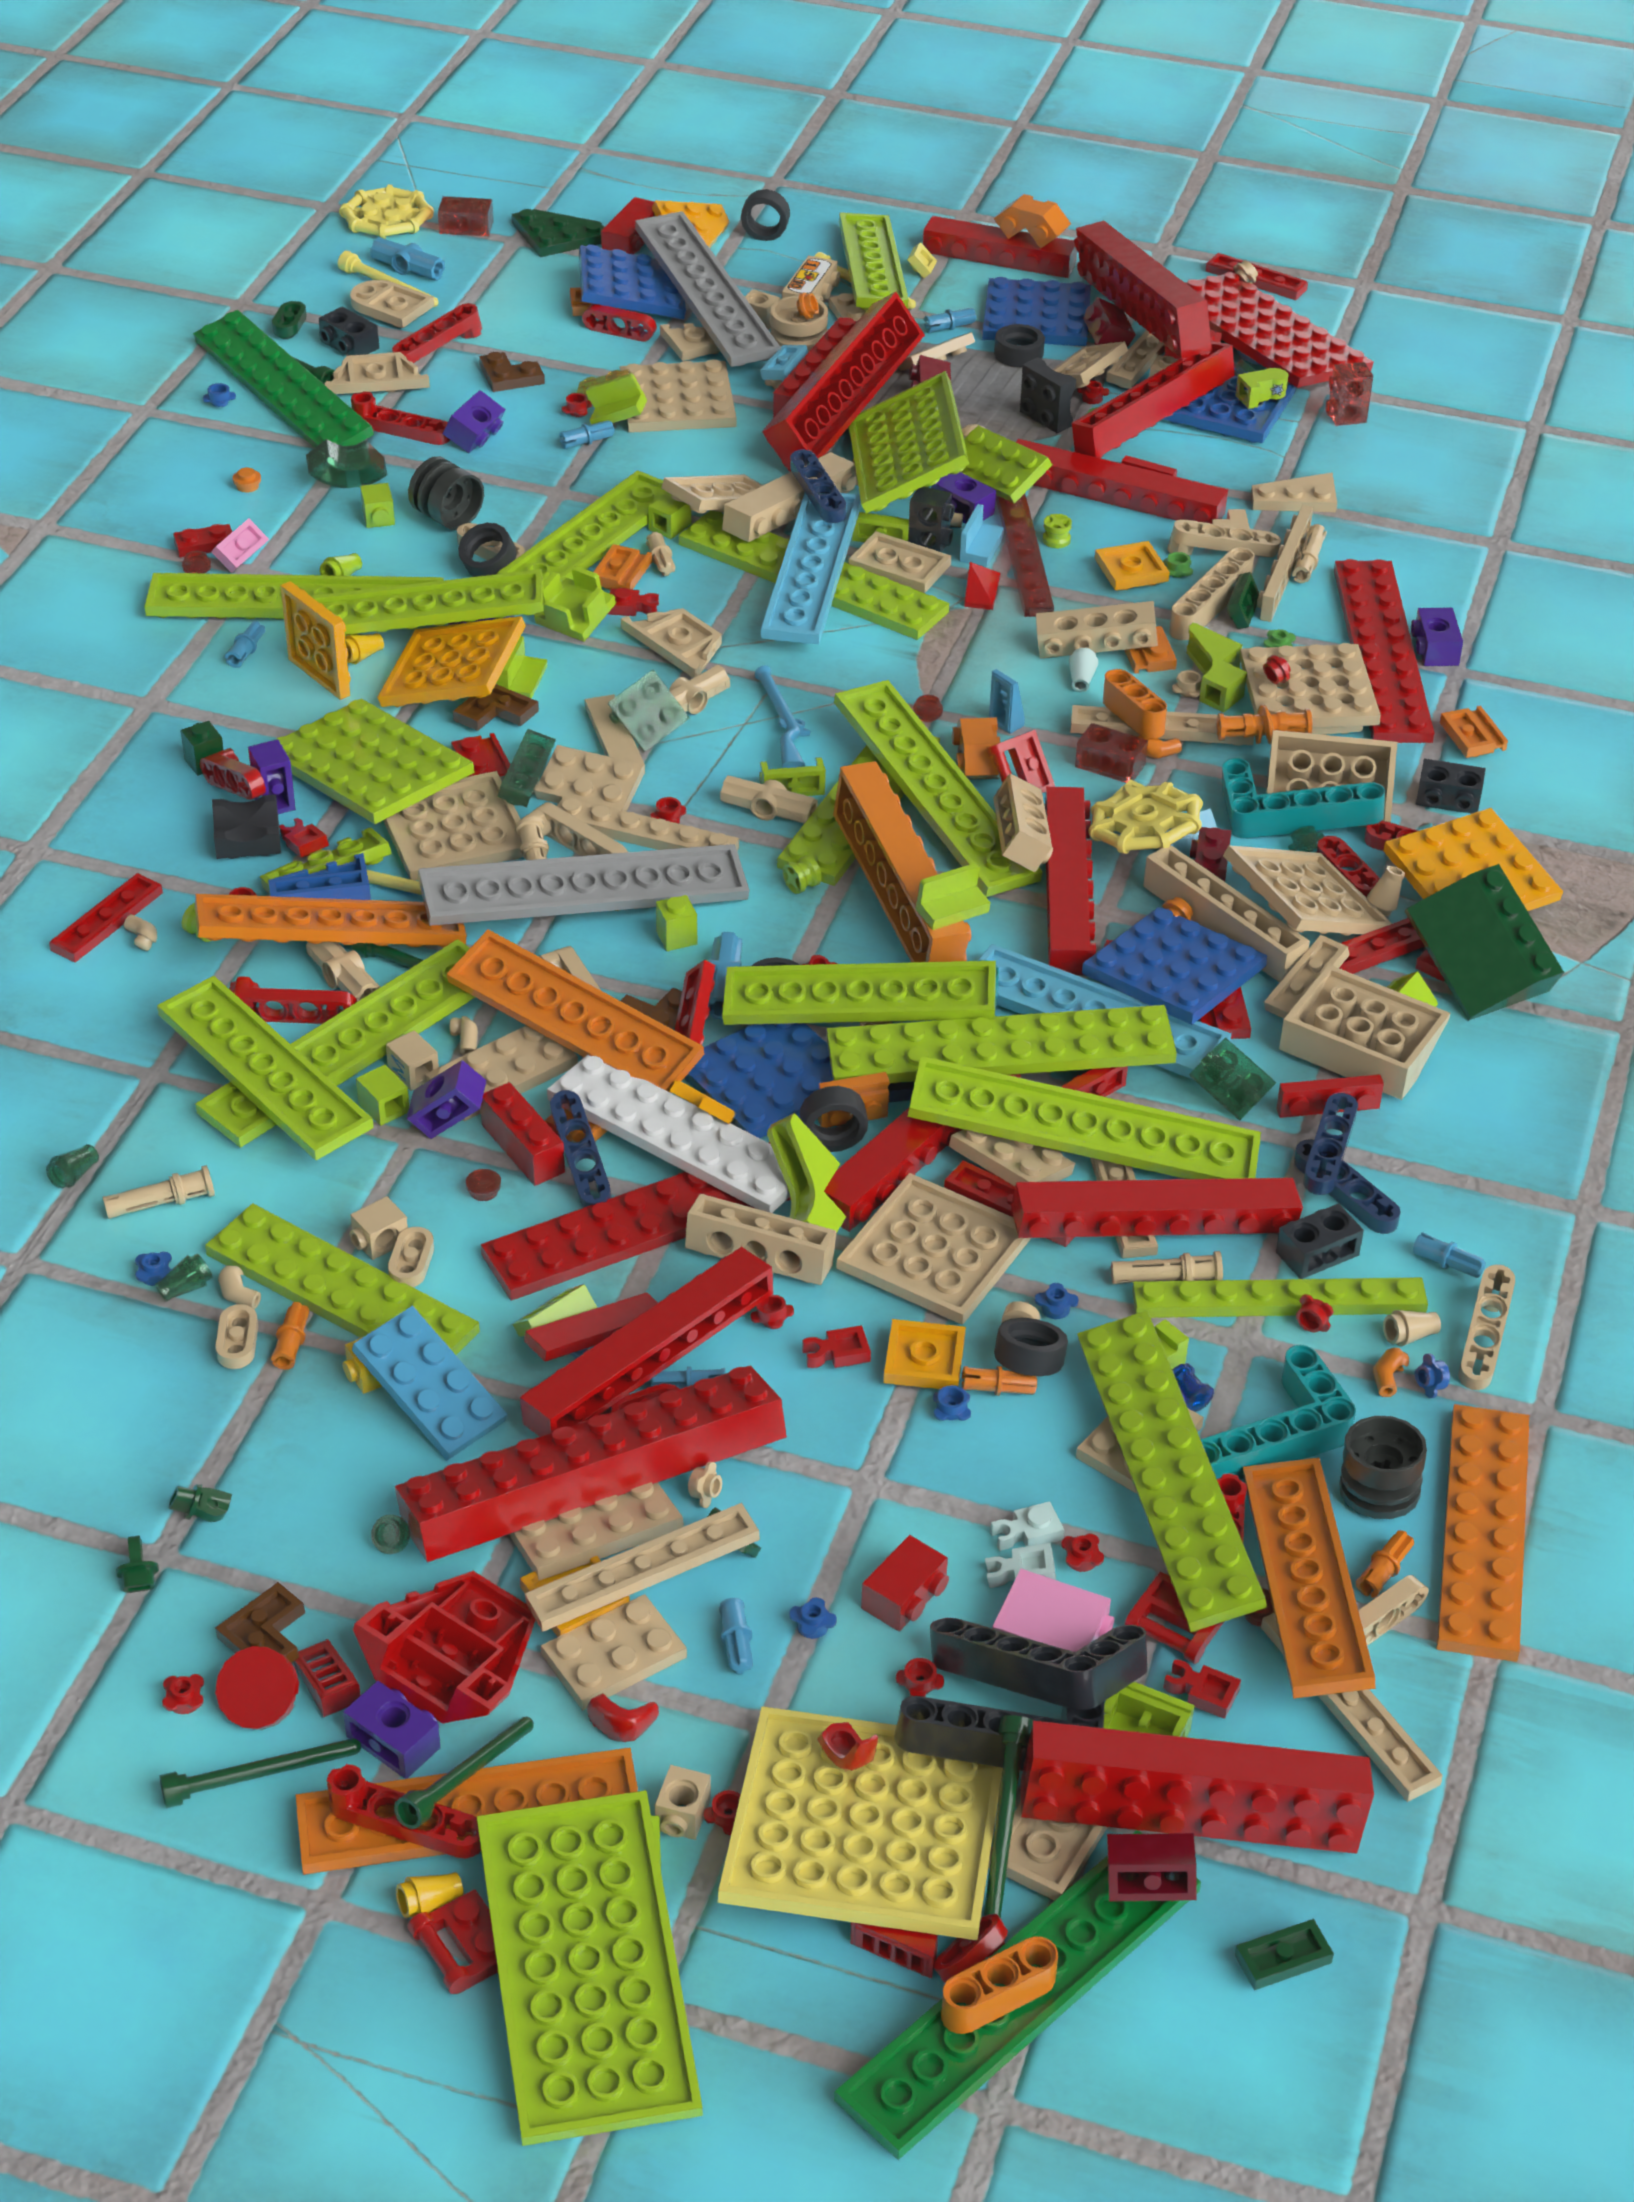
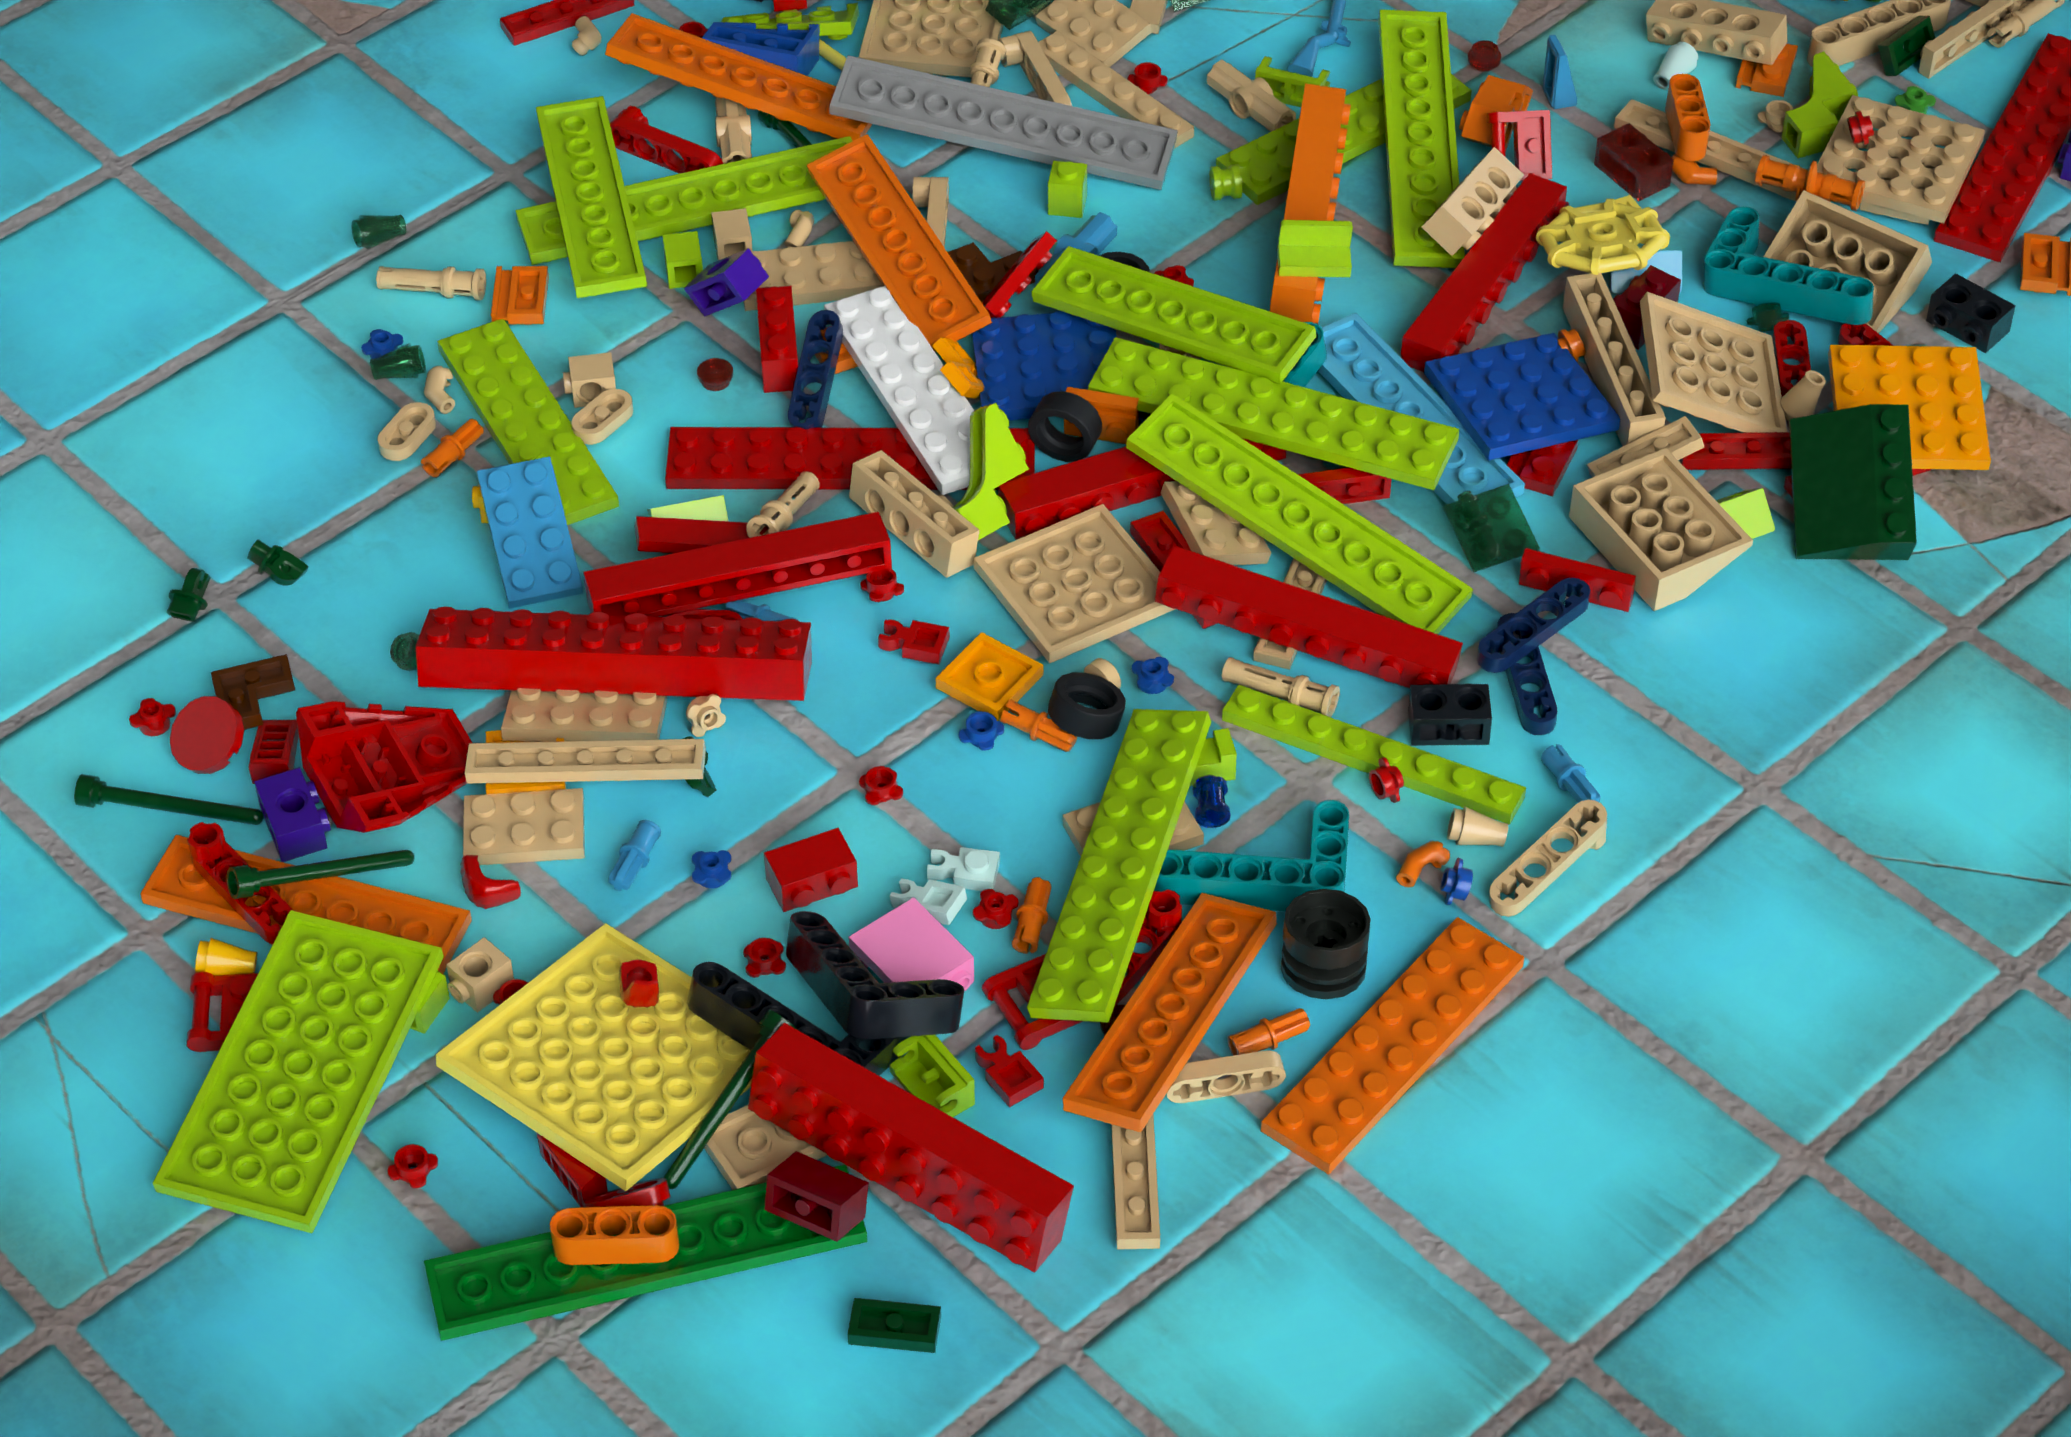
camera: 30 degrees right, 5 degrees up
(253, 1177) = (520, 294): none -> orange plate
(643, 1283) = (801, 489): none -> tan pin
(751, 1997) = (412, 1156): none -> red plate
(903, 1485) = (880, 785): none -> red plate
(1118, 1544) = (1032, 916): none -> orange axle

